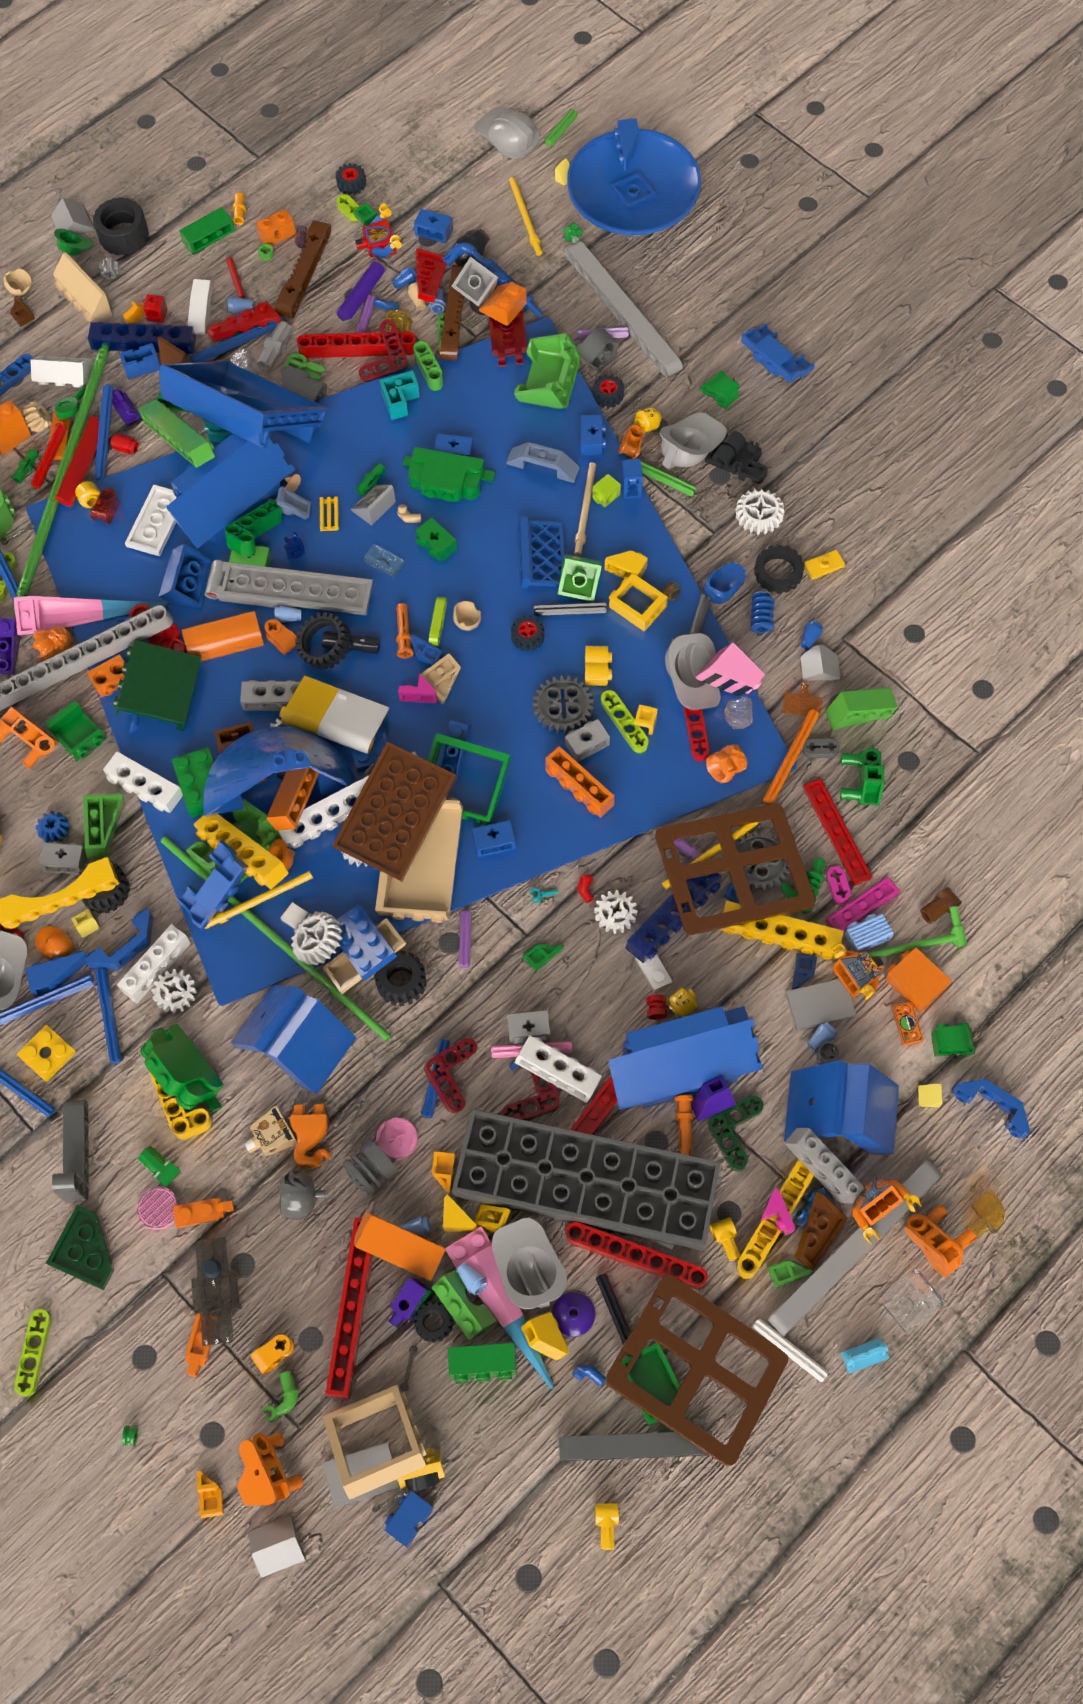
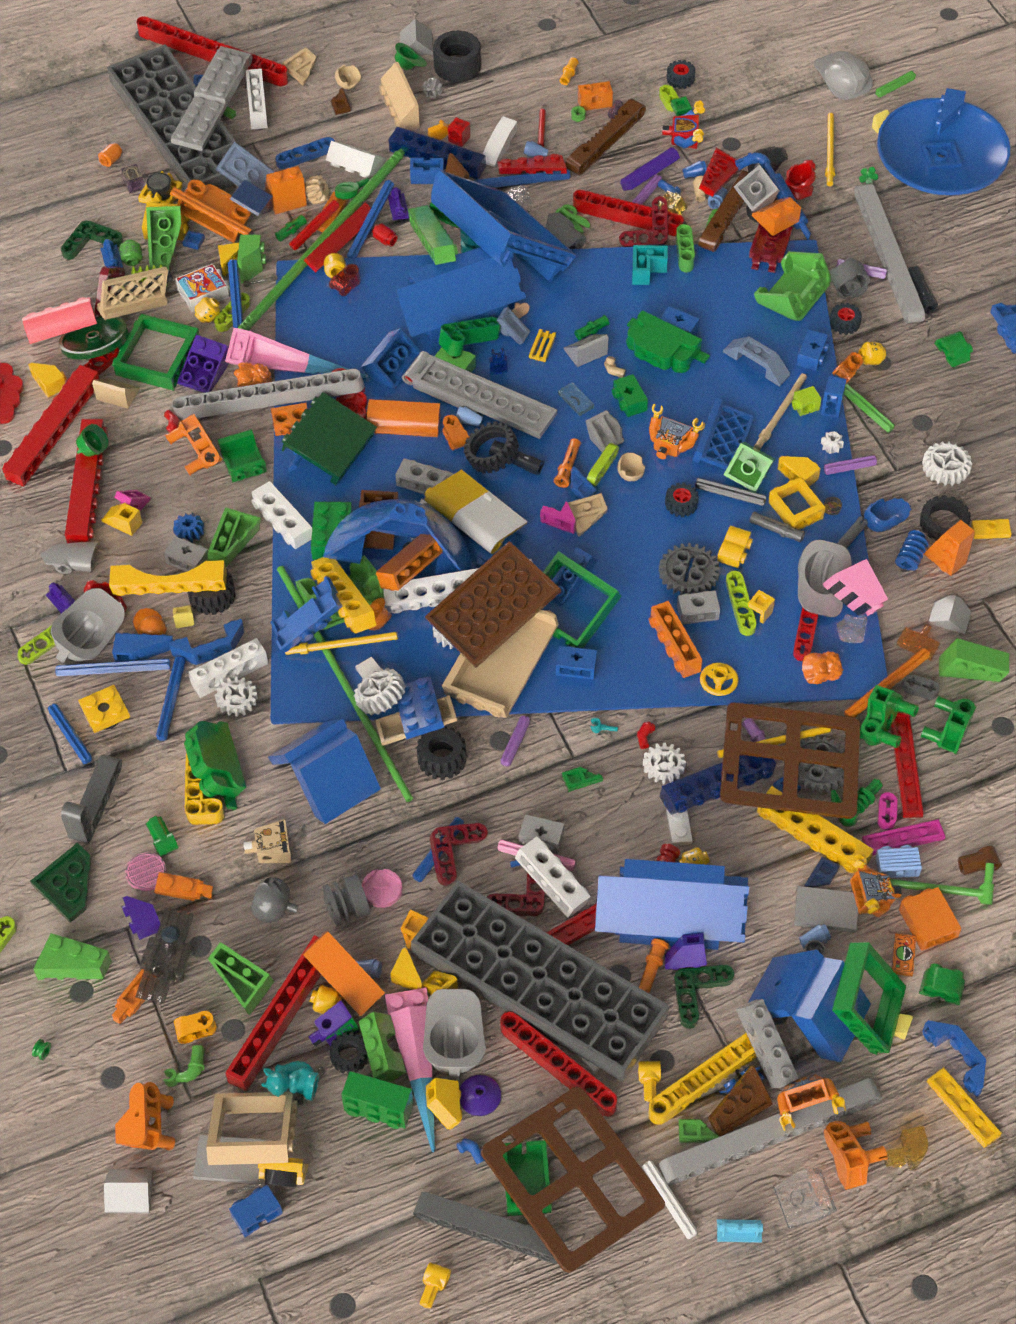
camera: 20 degrees right, 10 degrees down
(120, 1330) = (71, 959): none -> bright green wedge
(153, 523) = (380, 307): white plate -> none
(174, 1258) = (143, 917): none -> dark purple slope
(207, 230) = (532, 81): green brick -> none
(209, 1497) = (88, 1128): light orange slope -> none
(274, 346) = (552, 193): light grey piece -> none
(300, 1286) = (242, 977): none -> bright green wedge
(309, 1132) = (305, 854): orange hips -> none
(389, 1277) = (324, 999): none -> yellow head
(399, 1370) = (296, 1076): none -> teal animal
(426, 586) = (604, 430): none -> light grey slope
(433, 226) = (740, 133): blue brick -> none
(472, 1279) = (398, 1027): light blue cone -> none
(492, 570) = (672, 436): none -> torso
(511, 256) = (800, 179): none -> red piece
(613, 1307) = (519, 1098): black axle -> none
(628, 631) = (784, 530): none -> dark grey pin
(634, 799) = (719, 676): none -> yellow piece
(646, 526) = (832, 442): none -> white gear
(671, 543) = (851, 464): none -> medium lavender axle
(673, 342) = (927, 299): none -> black axle
(690, 440) = (905, 382): light grey piece -> none
(738, 456) = (945, 409): black plate -> none
(777, 1208) = (704, 1065): dark pink slope -> none
(797, 788) = (881, 705): none -> green piece
(798, 598) = (952, 548): none -> orange wedge
(811, 634) = (952, 584): blue cone -> none
(882, 1055) = (861, 957): none -> green window
(1017, 1154) = (964, 1107): none -> yellow tile

